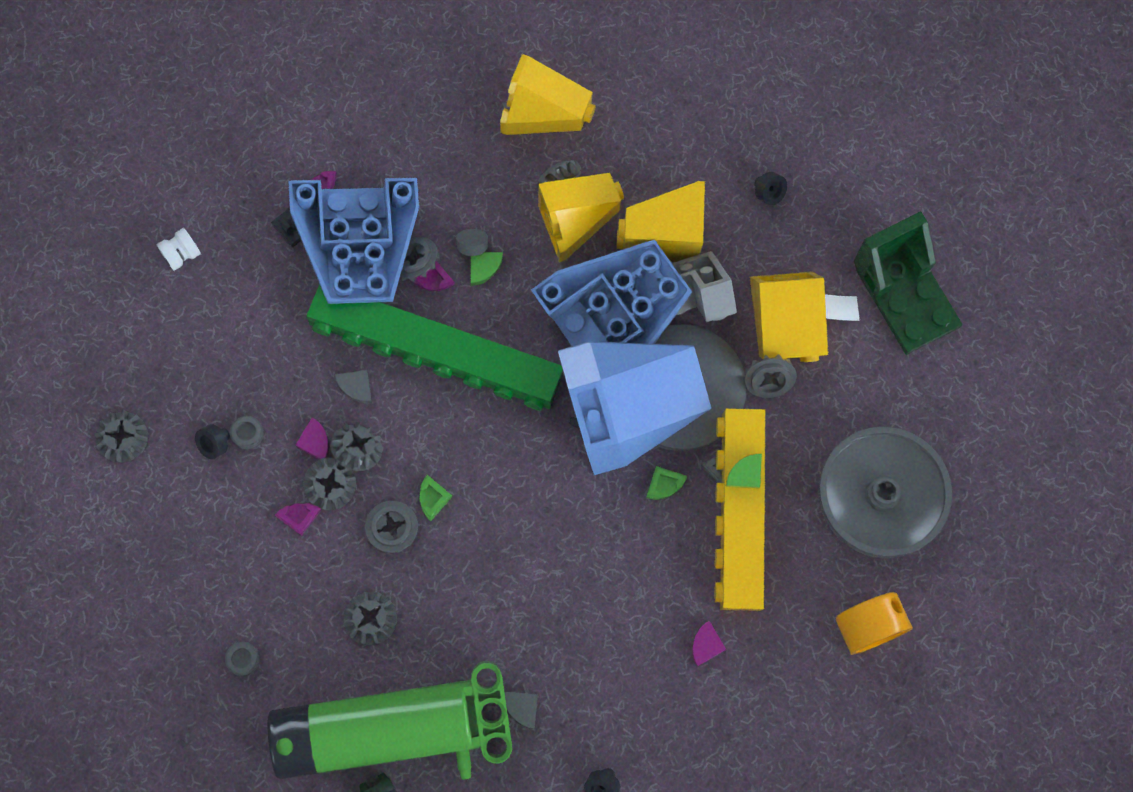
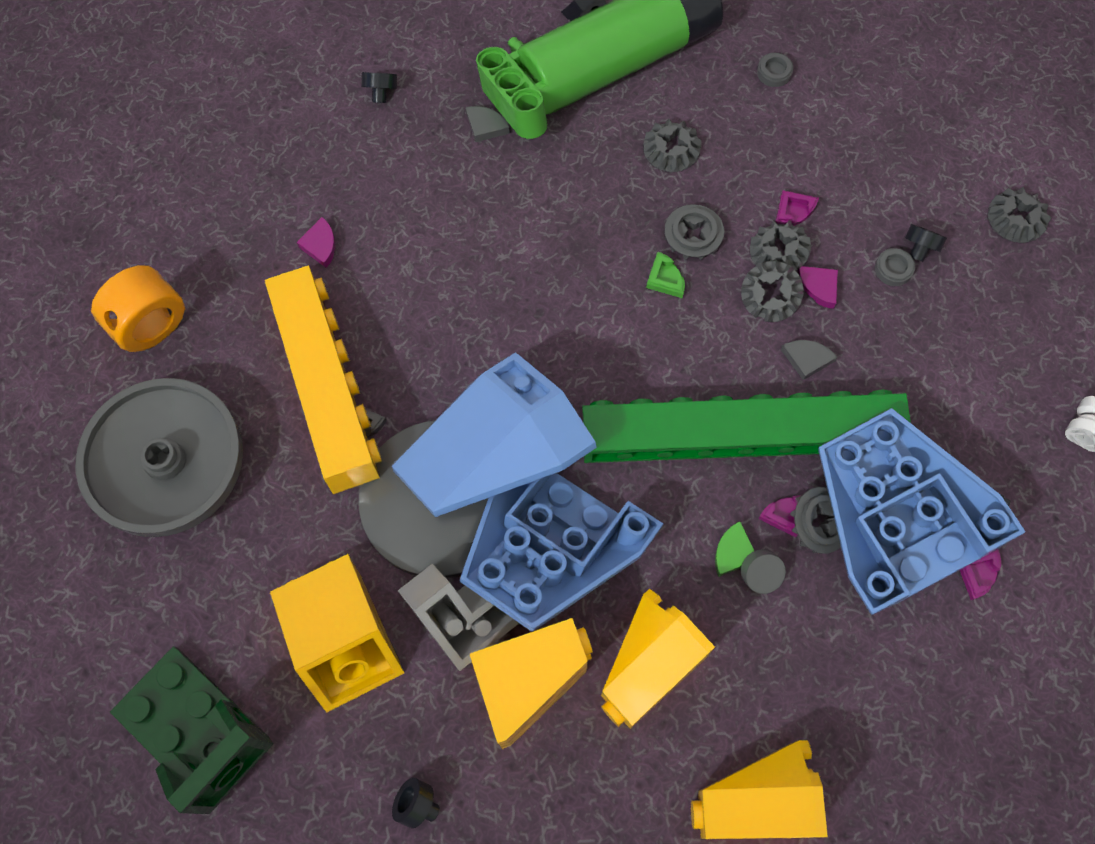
camera: 165 degrees right, 5 degrees down
(560, 171) = (695, 694): dark grey gear -> none
(665, 483) = (421, 384): bright green tile -> none
(746, 473) = (323, 396): bright green tile -> none
(767, 386) = (335, 541): dark grey gear -> none
(841, 307) = (273, 674): white sticker -> none

